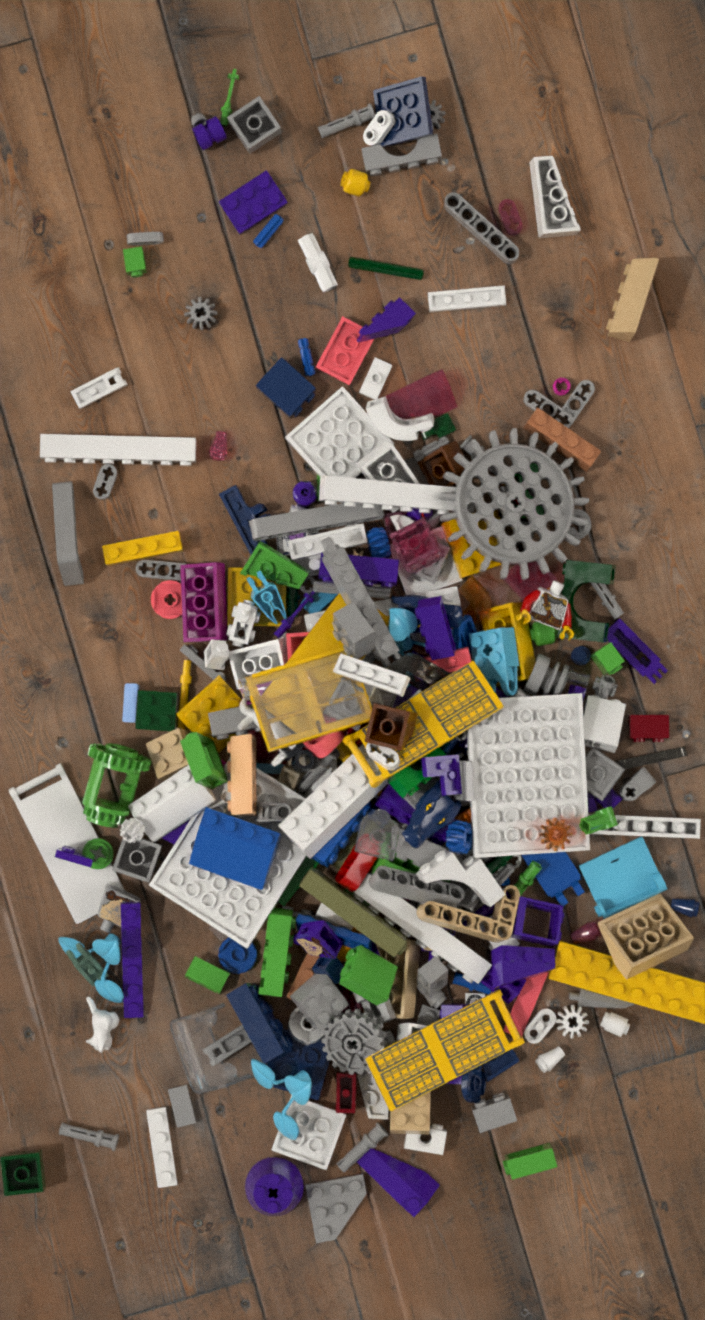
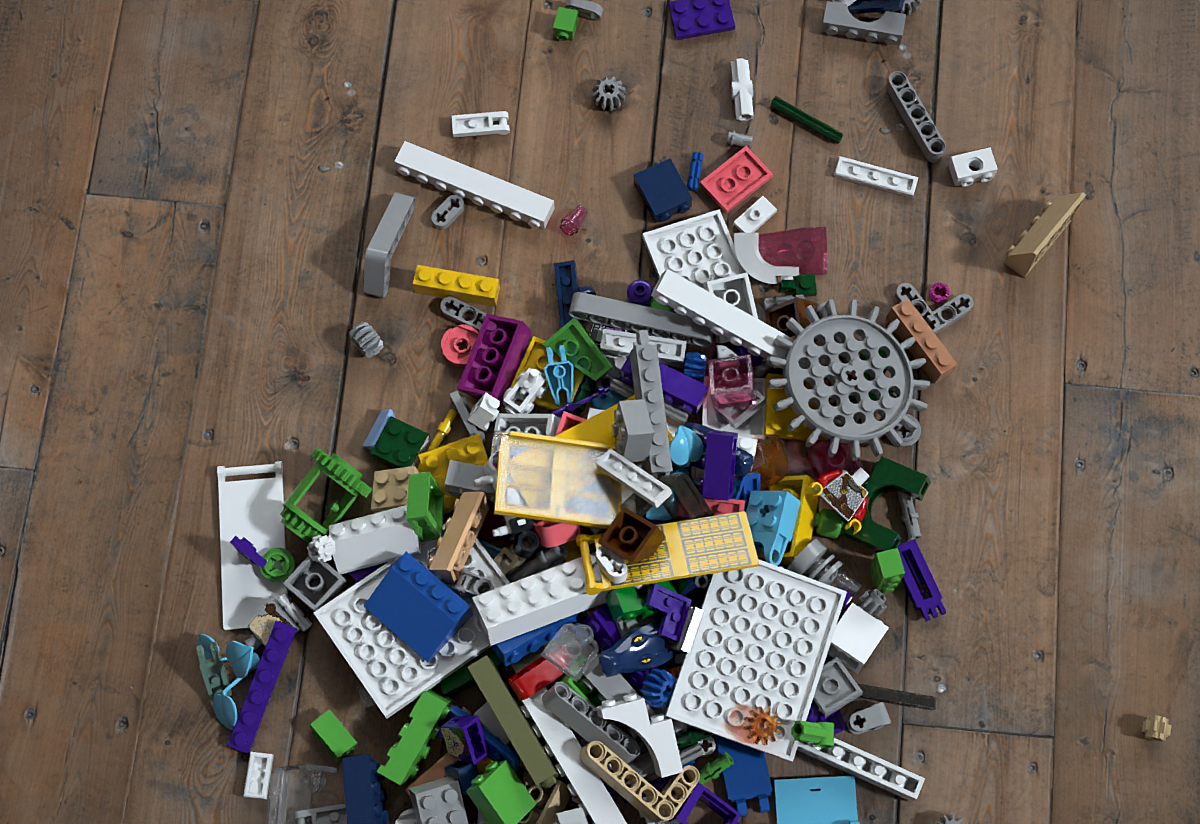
camera: 25 degrees right, 15 degrees down
(86, 629) = (366, 339): none -> light grey gear
(102, 1024) = (202, 743): white animal -> none
(129, 887) = (294, 612): none -> white axle
(160, 1031) = (258, 775): none -> white plate
(236, 957) = (373, 729): blue tile -> none
(268, 231) = (705, 45): blue axle -> none
(334, 312) = (739, 139): none -> light grey pin
(355, 182) = (808, 31): yellow head -> none
(391, 321) = (790, 166): dark purple slope -> none
(506, 219) = (943, 118): clear pink beam -> none
(551, 203) = (995, 115): white wedge -> none
(555, 248) = (981, 159): none -> white brick
(580, 655) = (859, 562): dark blue plate -> none
(648, 727) = (904, 663): dark red brick -> none

